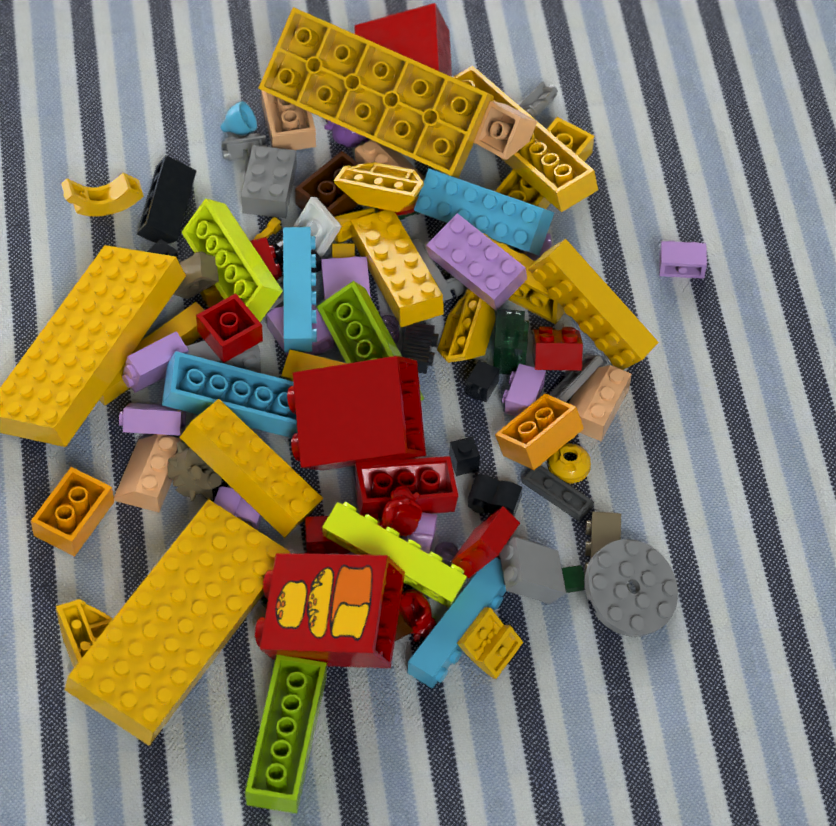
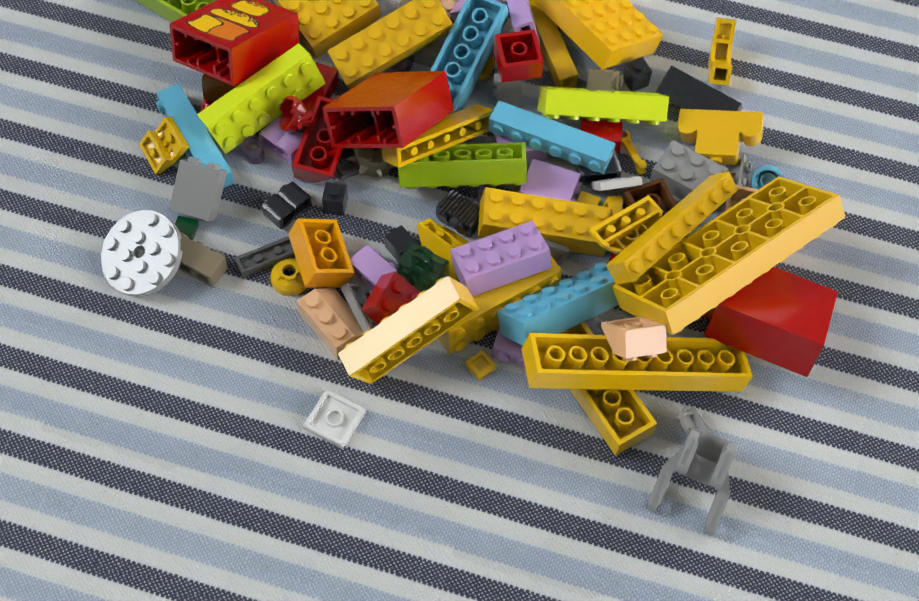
camera: 115 degrees right, 5 degrees up
(211, 163) = (720, 132): none -> yellow brick
(362, 147) = (671, 228): none -> yellow brick
(486, 542) = (237, 164): red brick -> none
(575, 75) = (706, 461): none -> light grey piece
(682, 259) = (446, 467): lavender brick -> none
(689, 364) = (334, 419): none -> white tile

